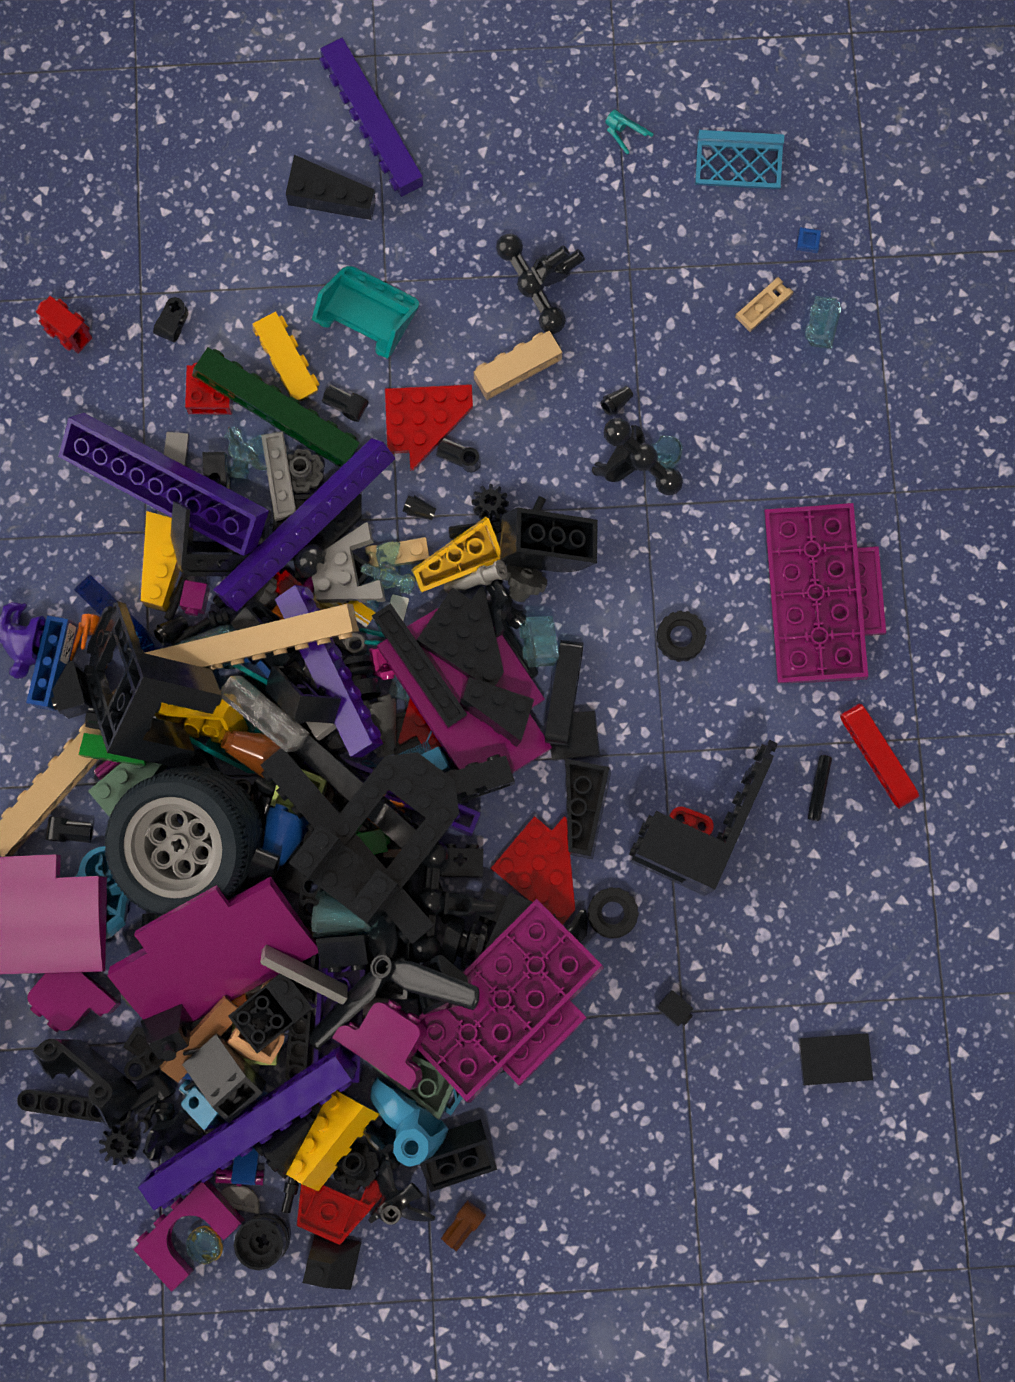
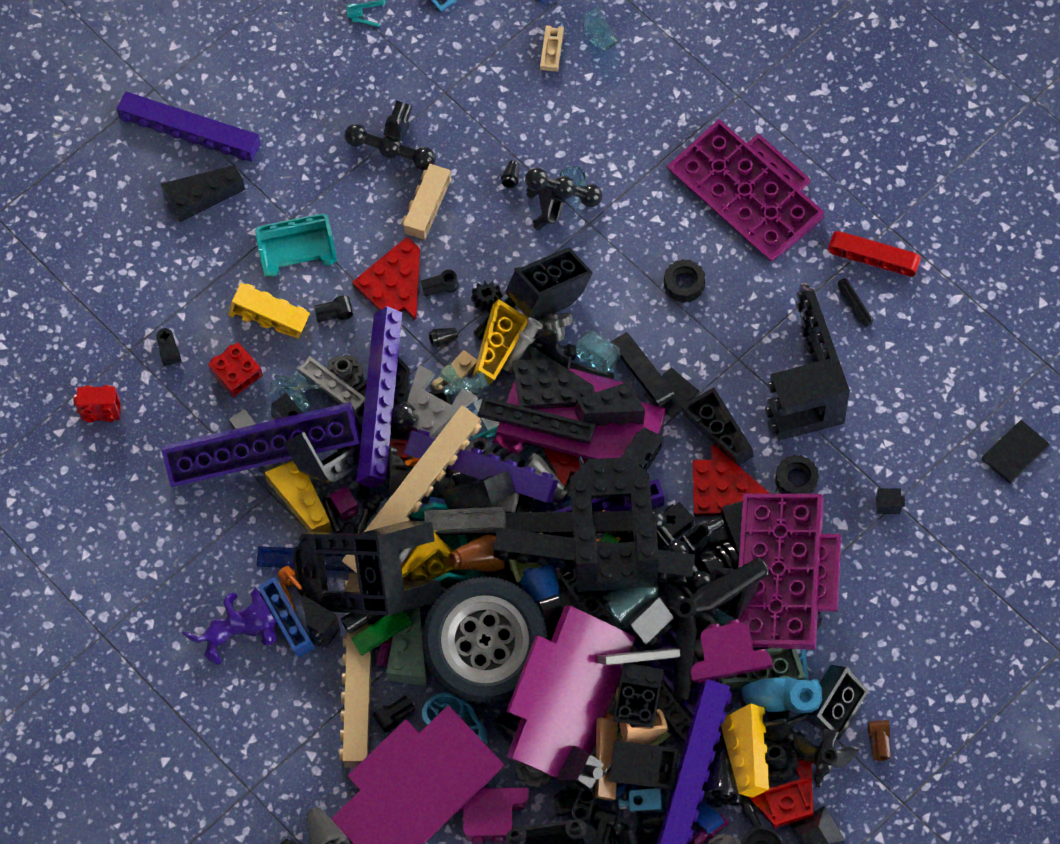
camera: 35 degrees left, 15 degrees down
(274, 407) = (293, 343): dark green brick -> none

